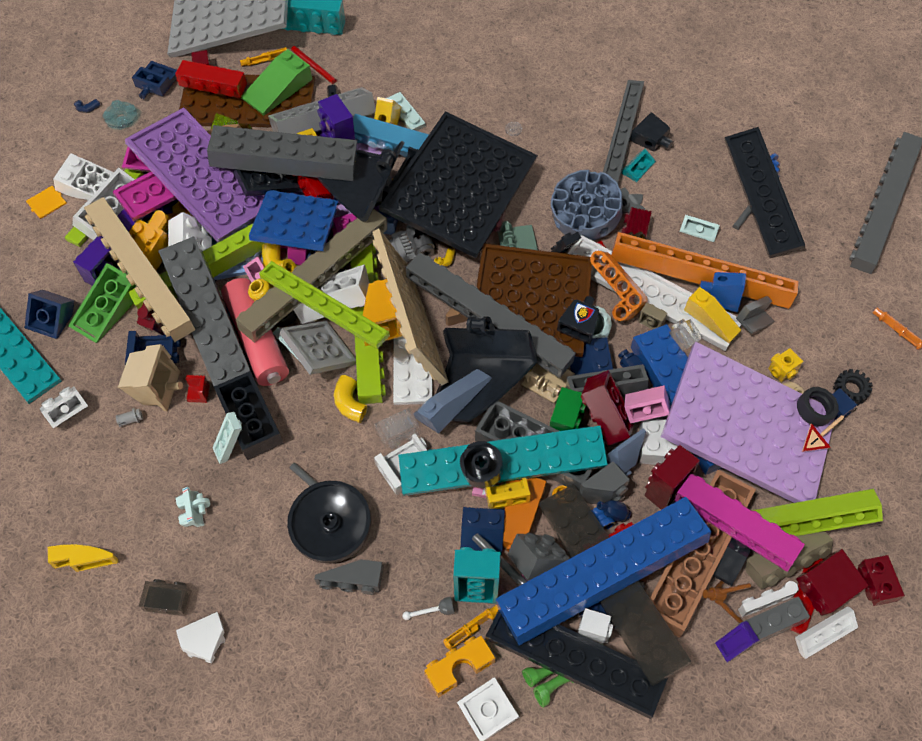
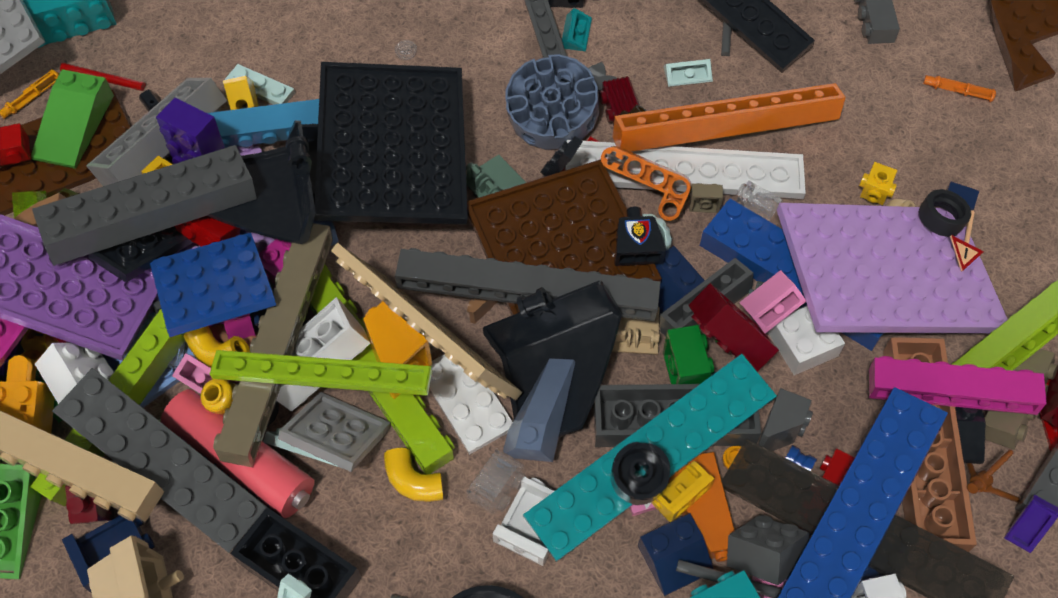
camera: 30 degrees left, 0 degrees up
(198, 388) = (203, 567): red panel -> none
(400, 245) = (347, 242): light grey piece -> none
(420, 245) = (385, 243): flat silver piece -> none
(448, 259) = (424, 238): yellow arm -> none
(614, 510) = (808, 444): dark blue plant -> none
(627, 453) = (782, 367): sand blue slope -> none
(629, 359) = (712, 261): dark blue arm -> none
(670, 476) = (850, 373): dark red brick -> none
(711, 314) = (768, 163): yellow slope -> none
(726, 289) = (768, 128): blue torso -> none
(754, 316) = (813, 146): dark grey panel -> none
(768, 599) = (1028, 456): white plate -> none
(858, 379) = (960, 163): black tyre -> none

